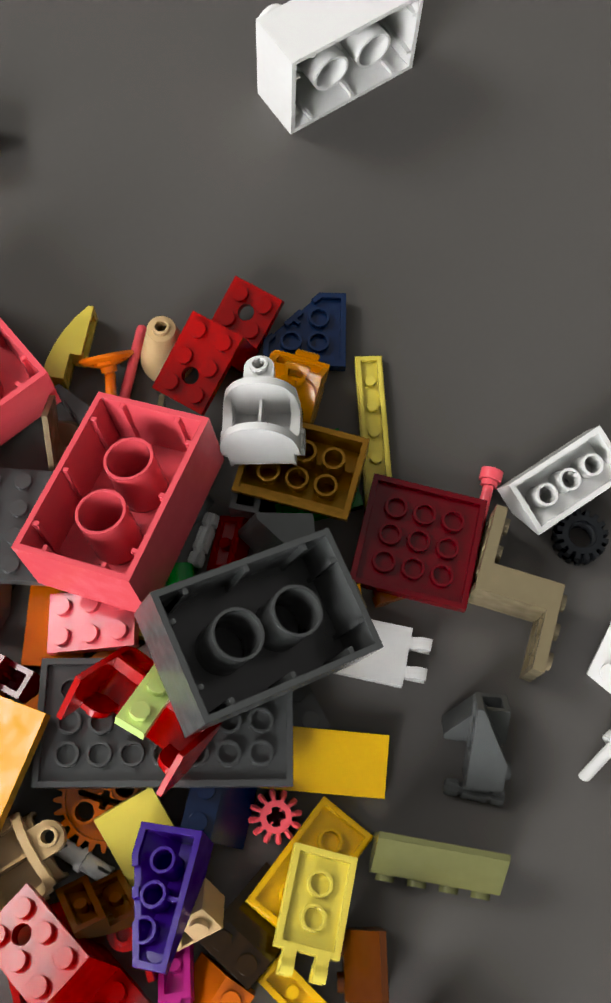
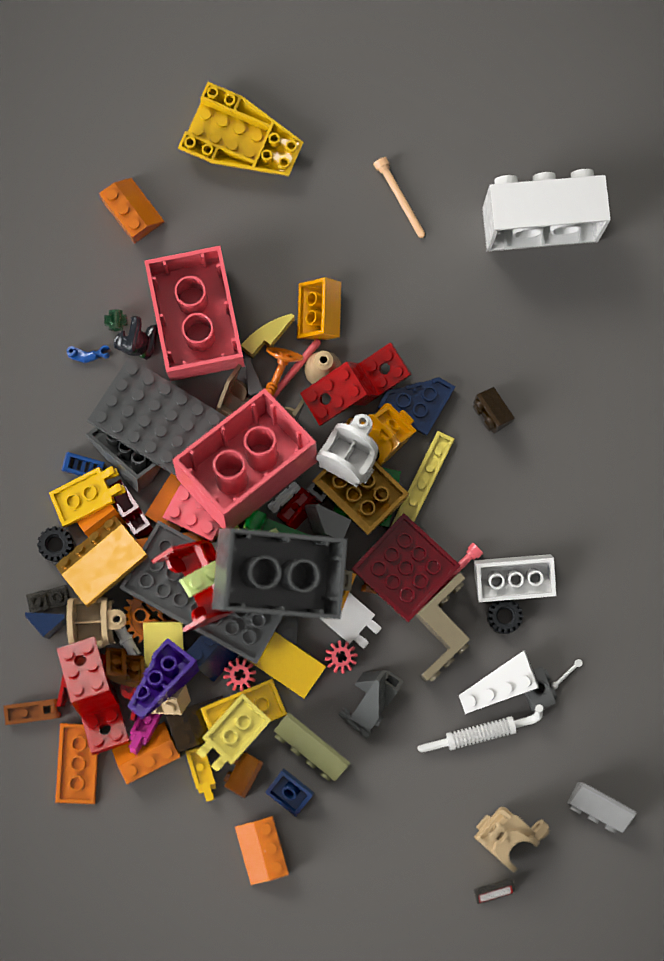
camera: 30 degrees right, 10 degrees up
(112, 98) = (382, 166): none -> light nougat piece
(122, 287) = (319, 309): none -> light orange slope
(408, 297) = (493, 410): none -> dark brown slope
(408, 702) = (348, 655): none -> coral gear
(443, 950) = (289, 792): none -> dark blue slope

